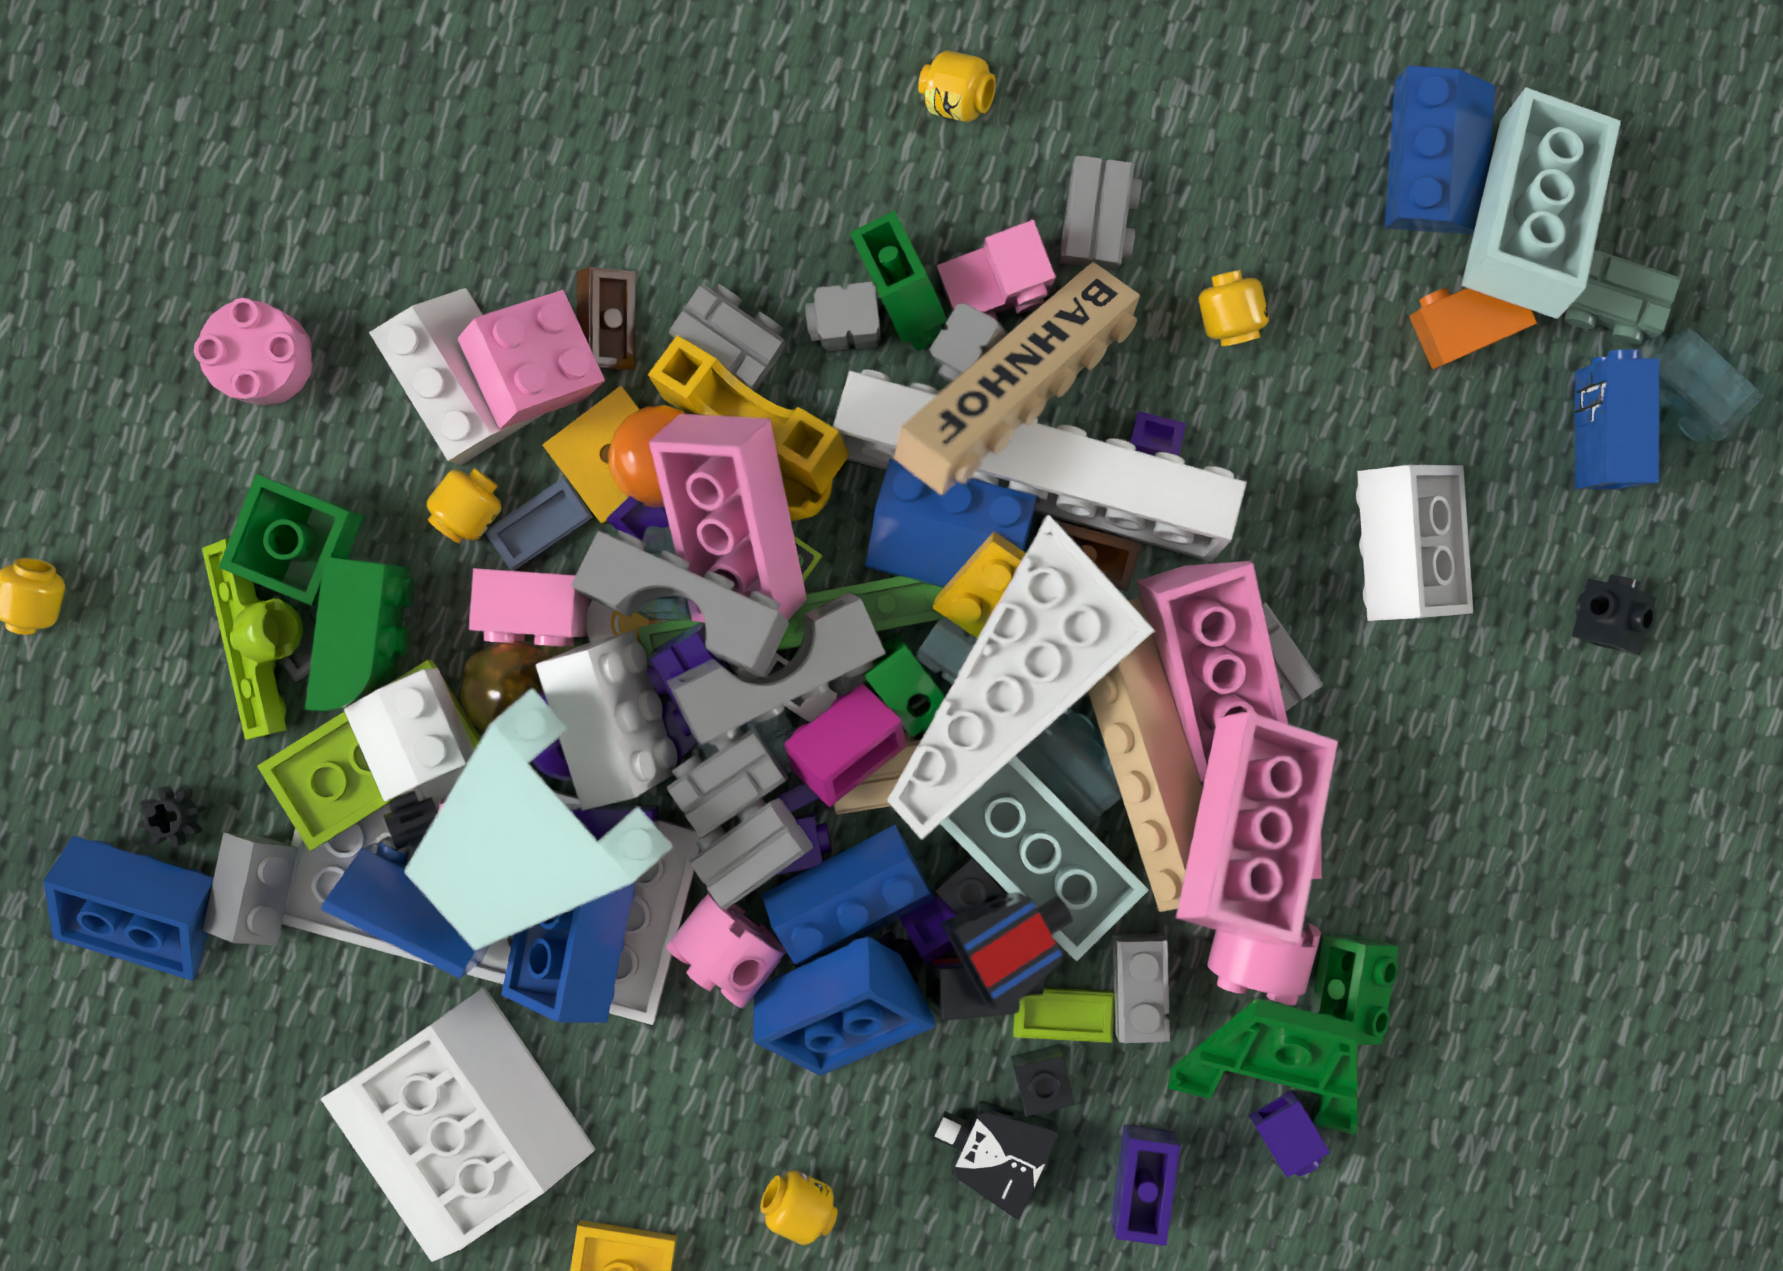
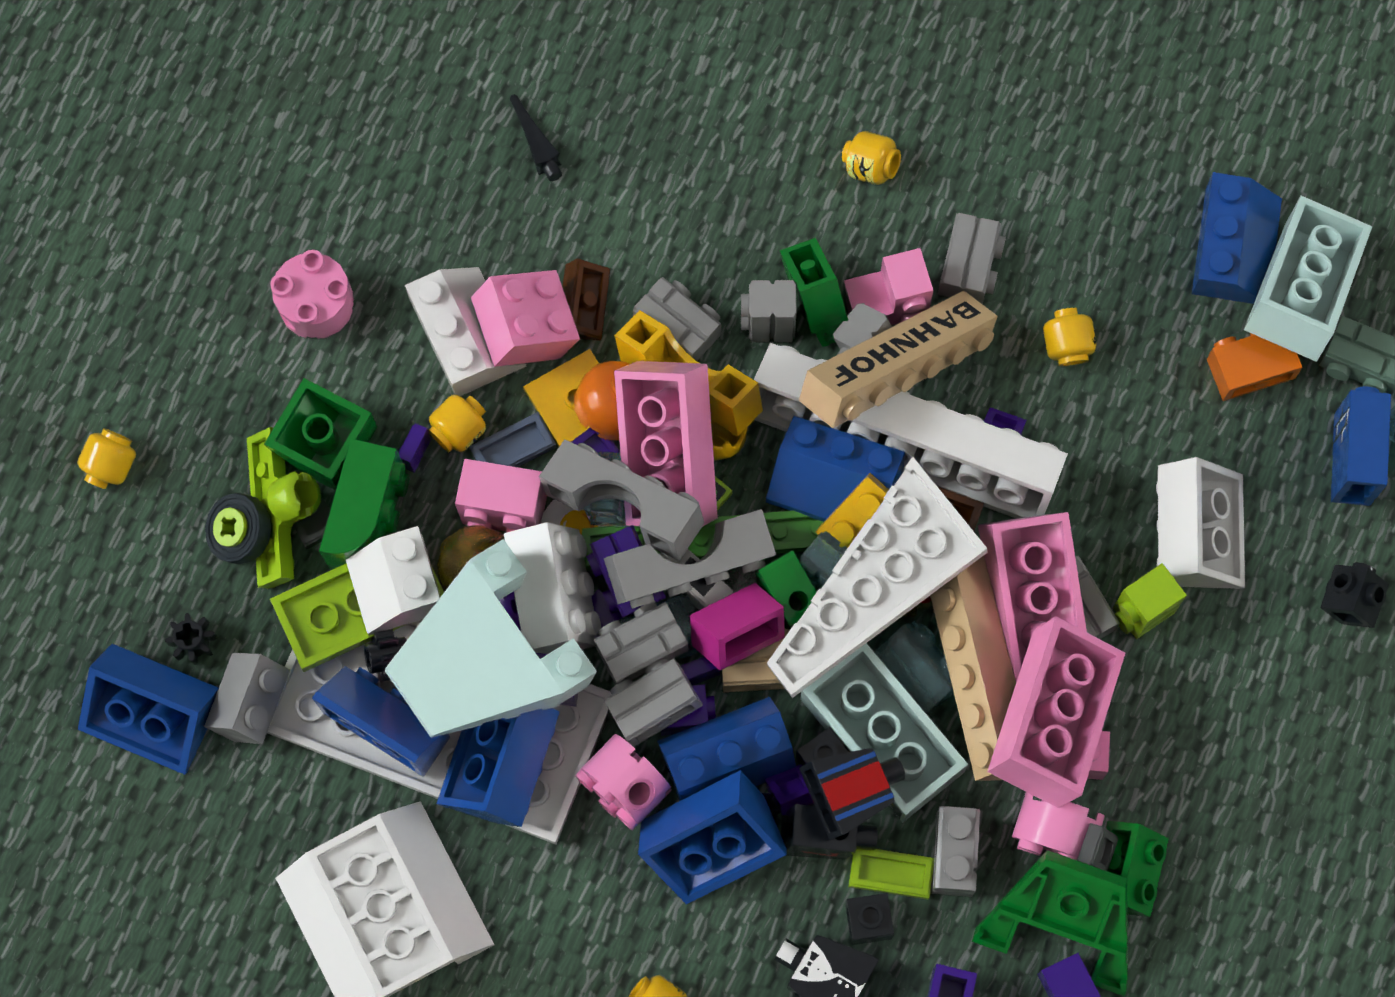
camera: 15 degrees right, 15 degrees down
(207, 671) = (238, 528): none -> black wheel
(413, 542) = (414, 446): none -> dark purple tile
(527, 121) = (543, 152): none -> black piece
(1316, 981) = (1098, 847): none -> dark grey tile
(1358, 656) = (1148, 601): none -> lime brick

